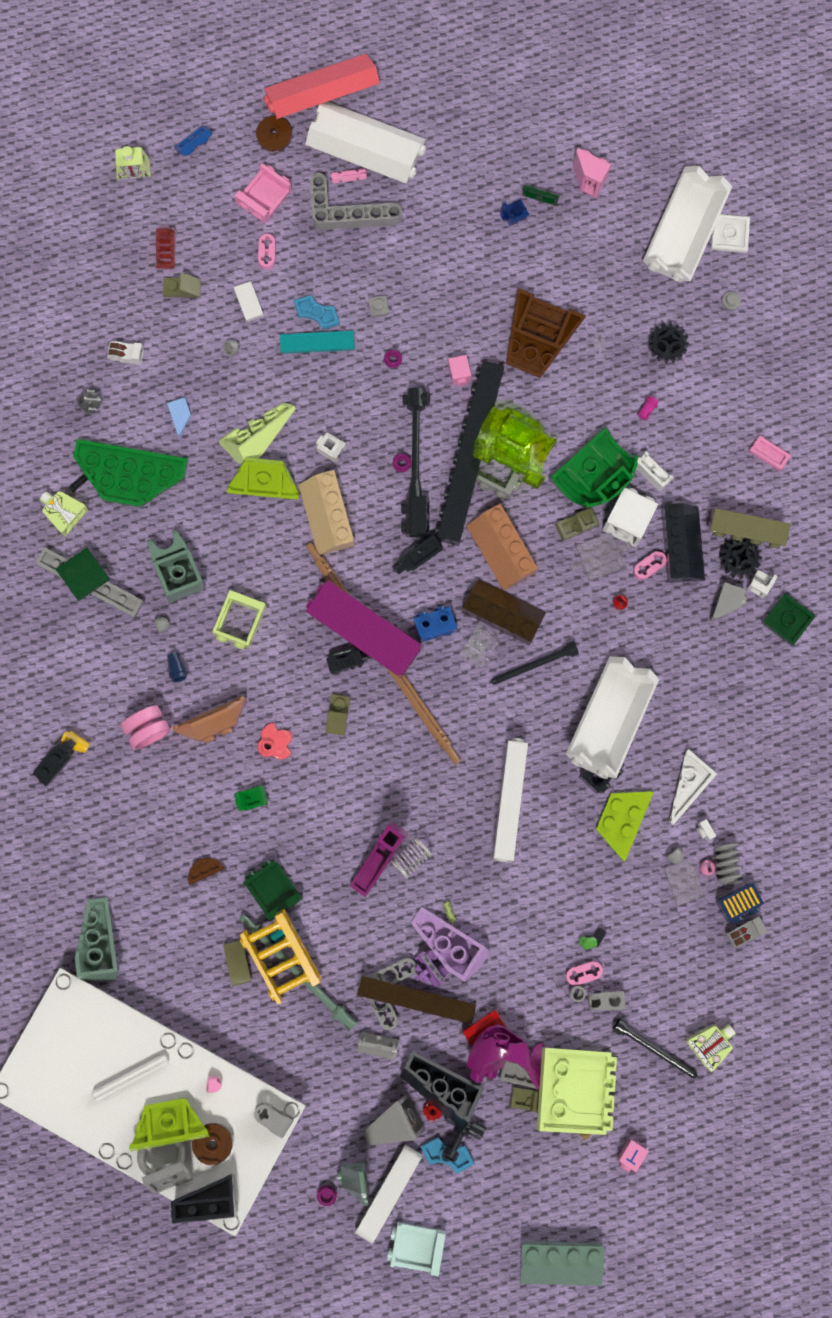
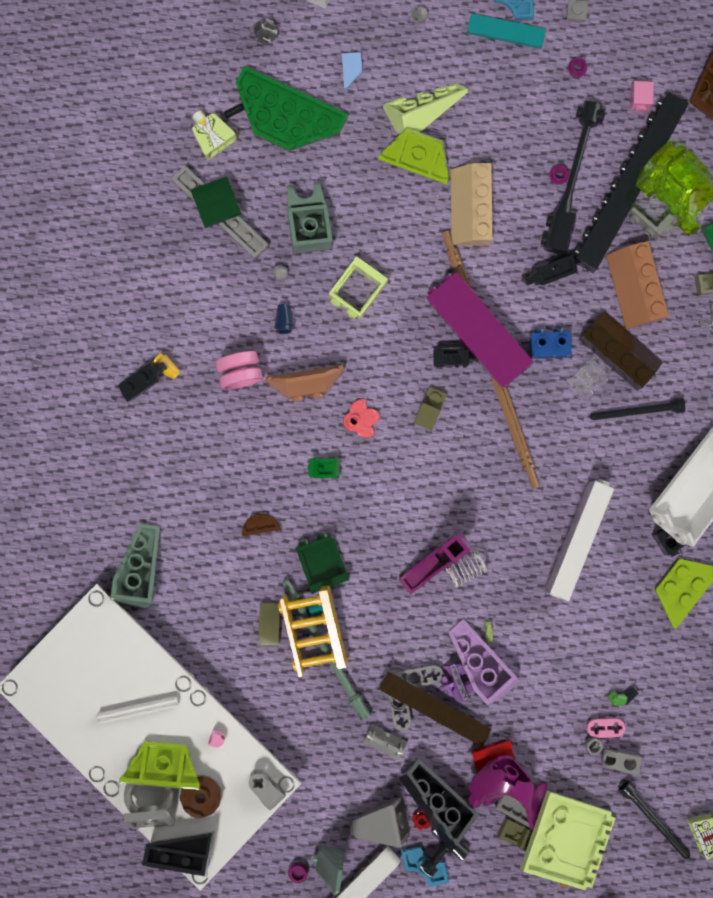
camera: 15 degrees right, 5 degrees up
(330, 446) = (492, 139): white window -> none

